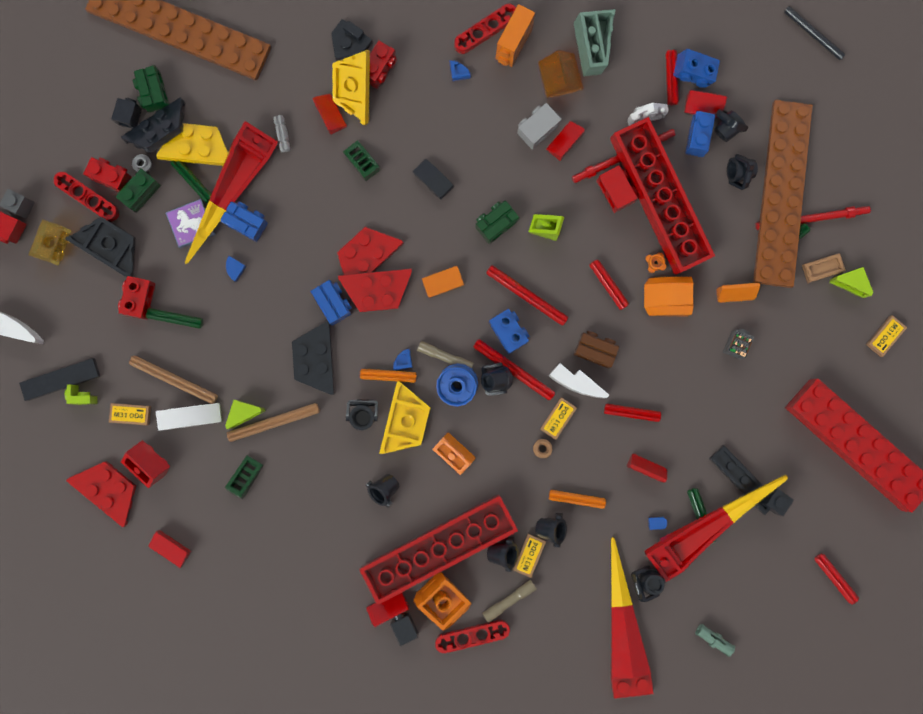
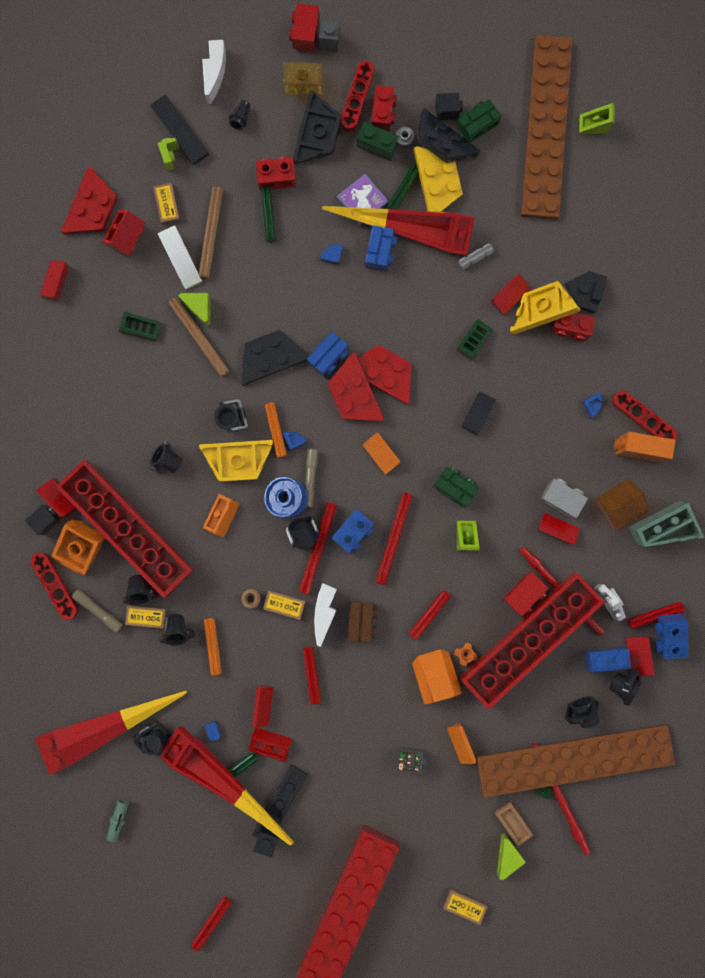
camera: 75 degrees right, 0 degrees up
(67, 316) = (239, 116): none -> black cone
(685, 472) = (270, 744): none -> red slope

